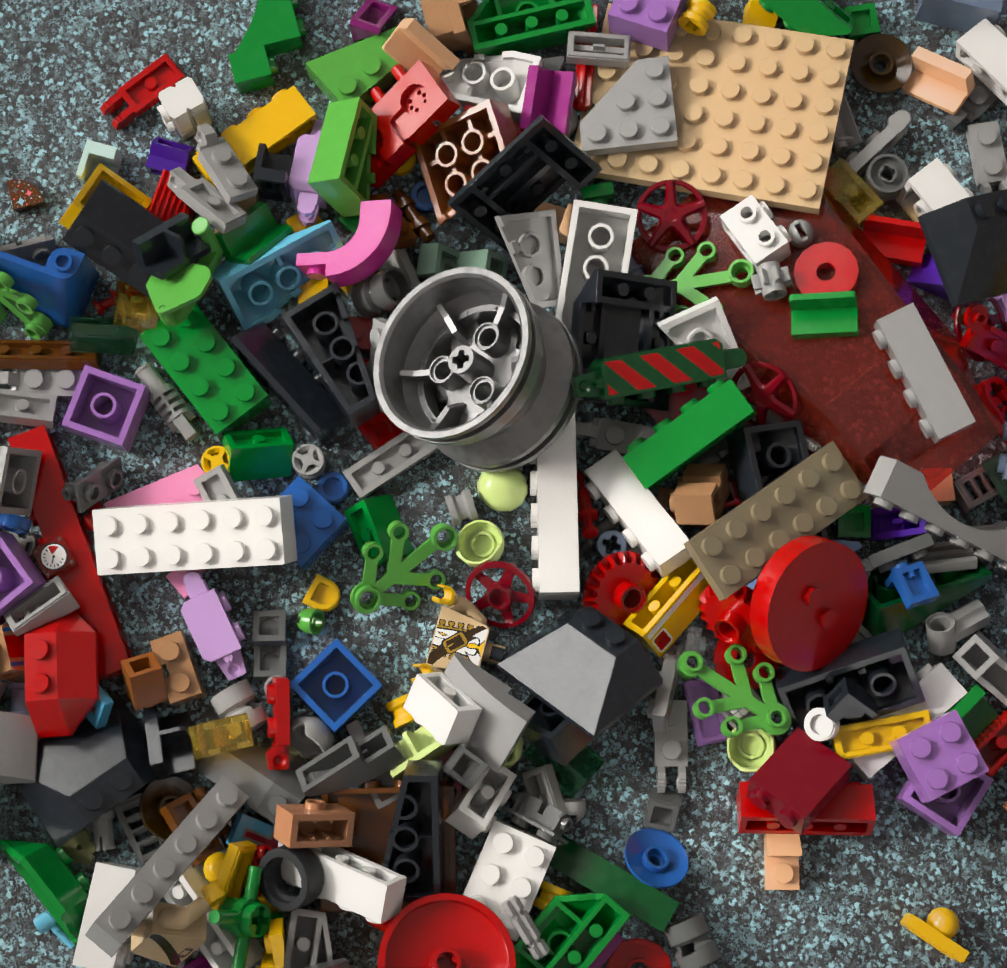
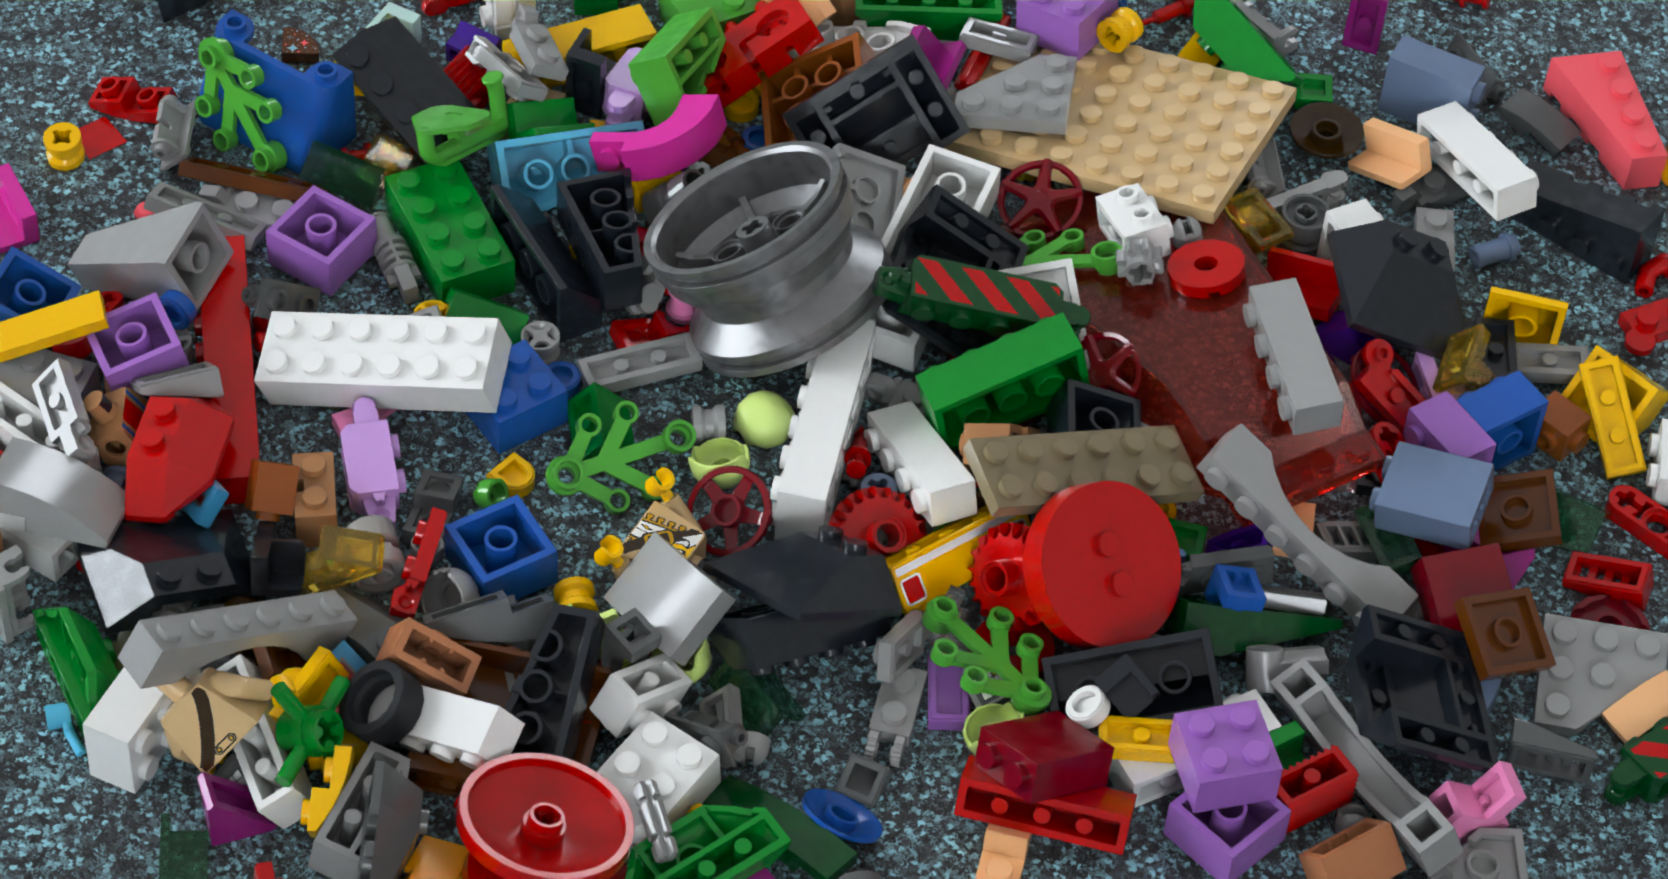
camera: 10 degrees right, 30 degrees down
(54, 557) = (211, 347): tile -> none
(168, 247) = (447, 86): black panel -> none
(442, 708) = (622, 576): white brick -> none
(824, 315) = (1193, 294): green panel -> none

